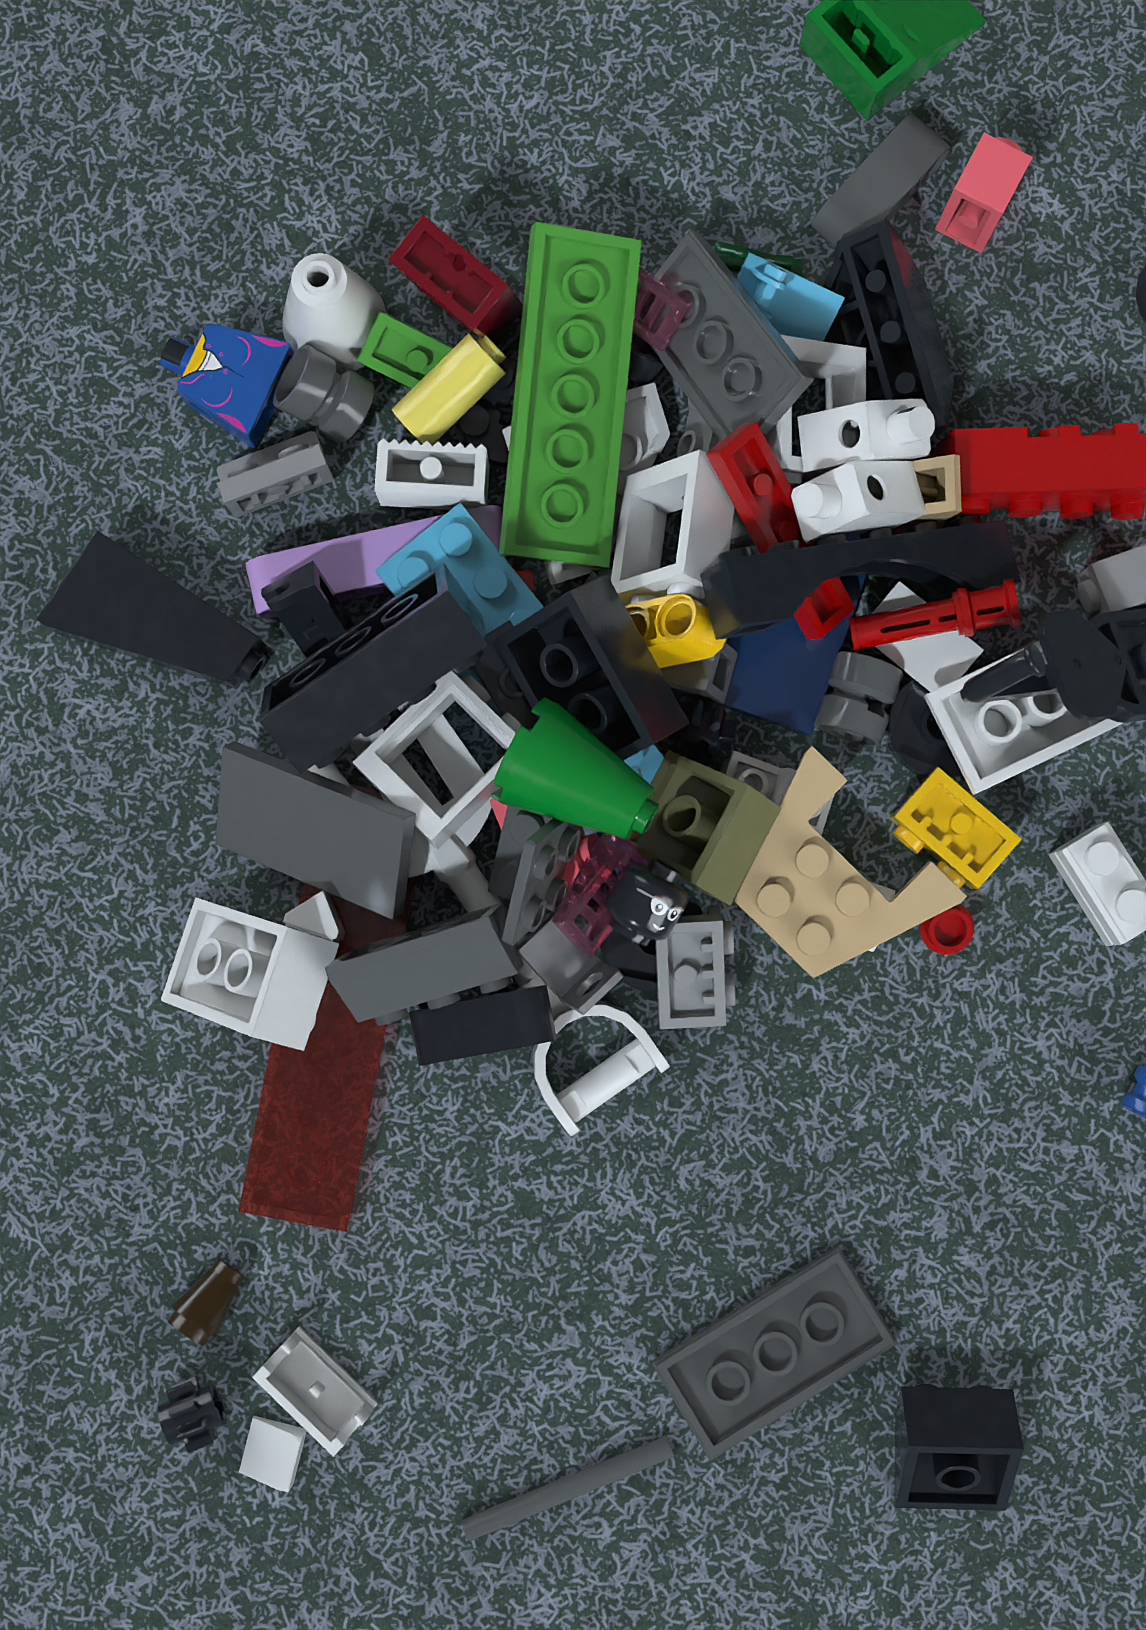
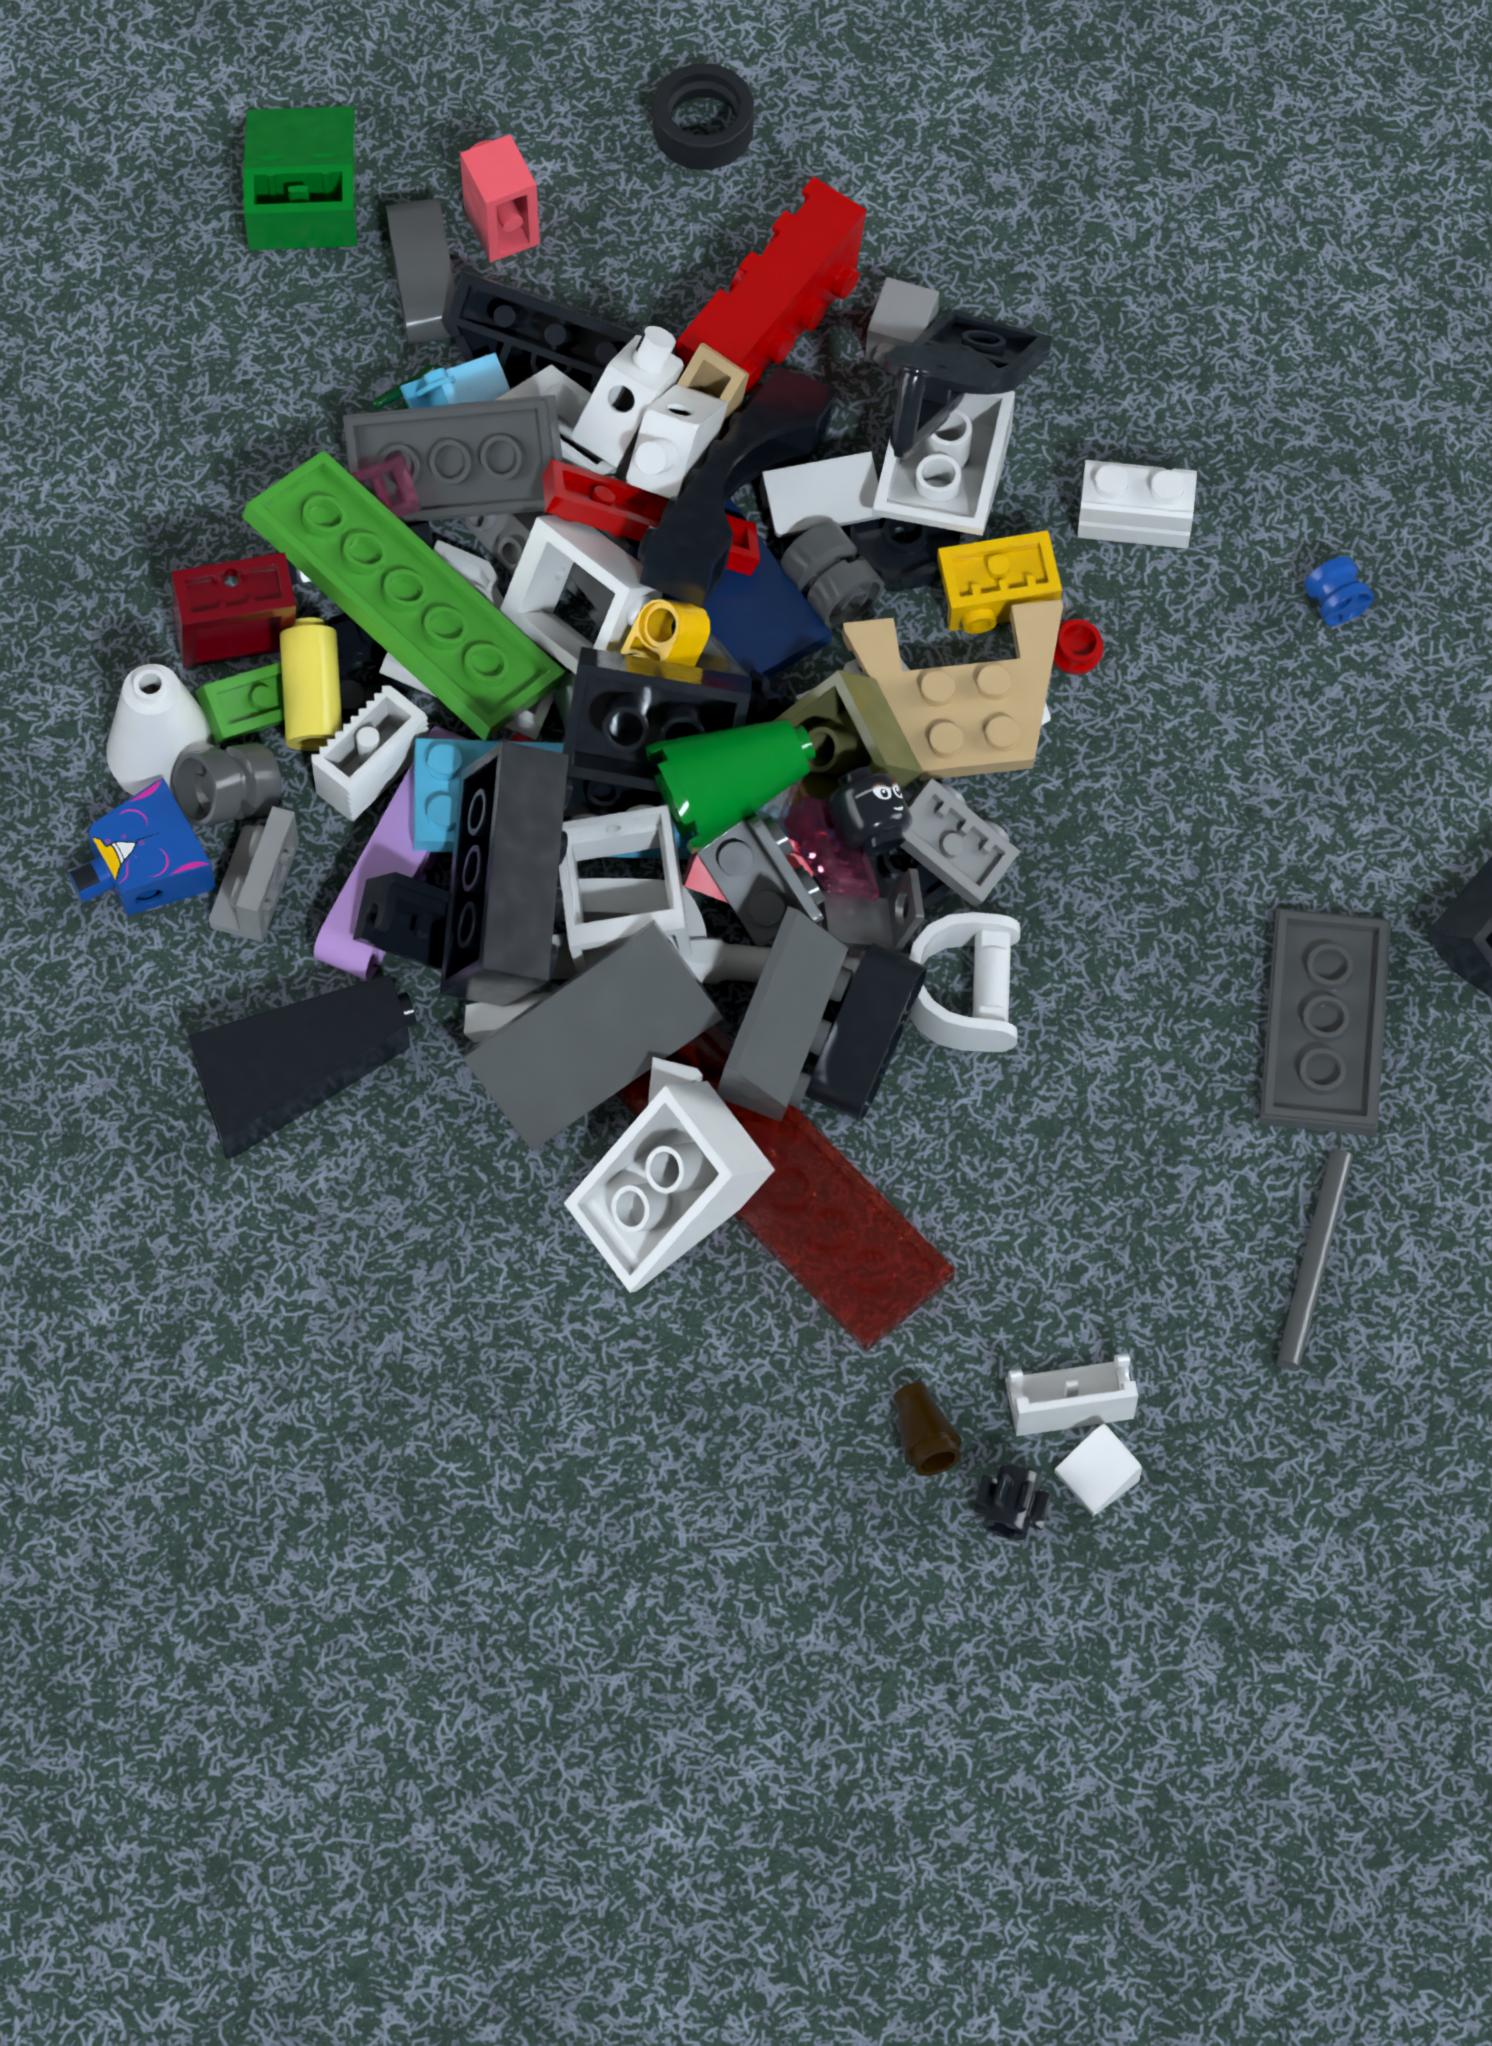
camera: 55 degrees left, 20 degrees down
(970, 610) = (822, 436): red pin -> none

